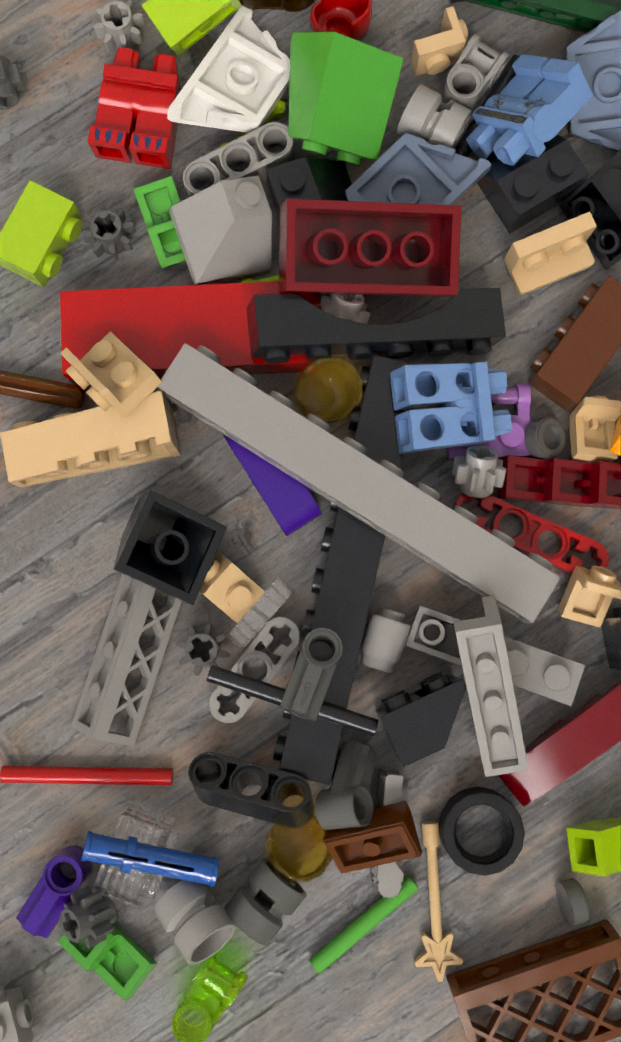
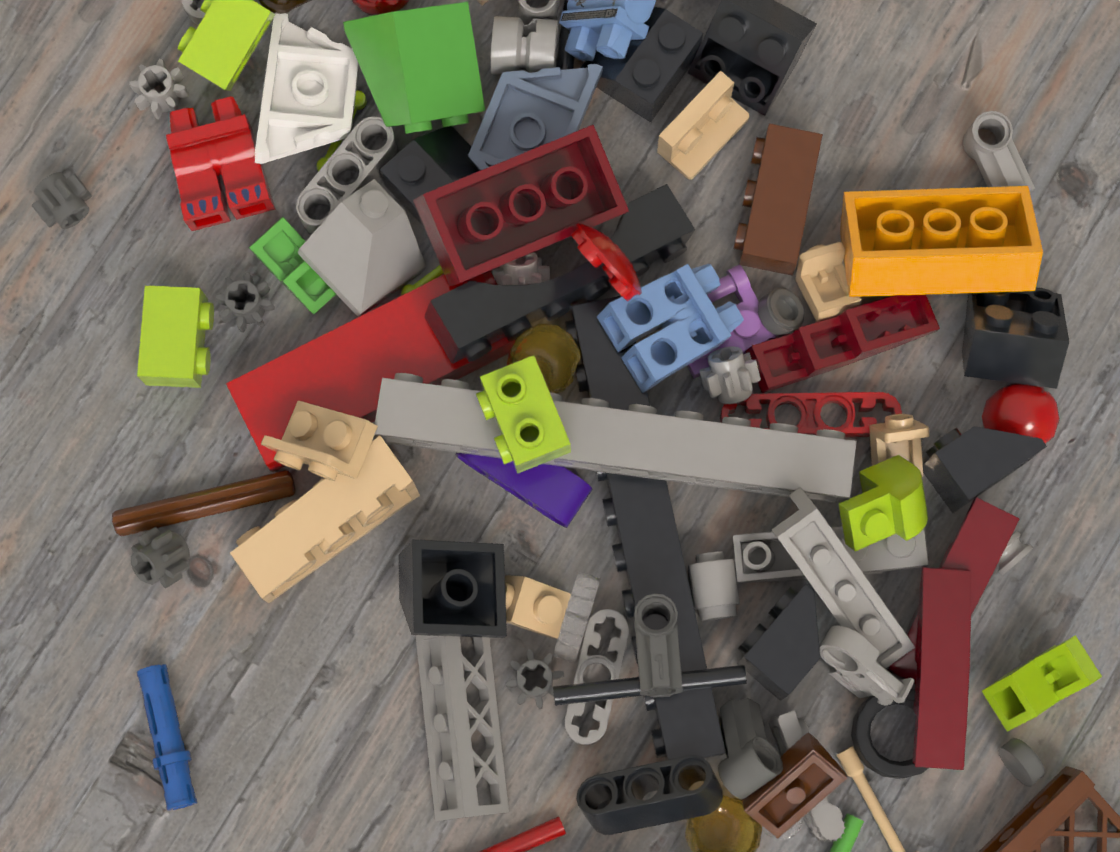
camera: 20 degrees left, 5 degrees down
(287, 427) = (524, 415): none -> lime brick
(418, 314) = (601, 249): none -> red dish
(473, 765) = (856, 667): none -> light grey piece
(544, 799) = (942, 668): none -> dark red slope
(561, 642) = (888, 505): none -> lime brick

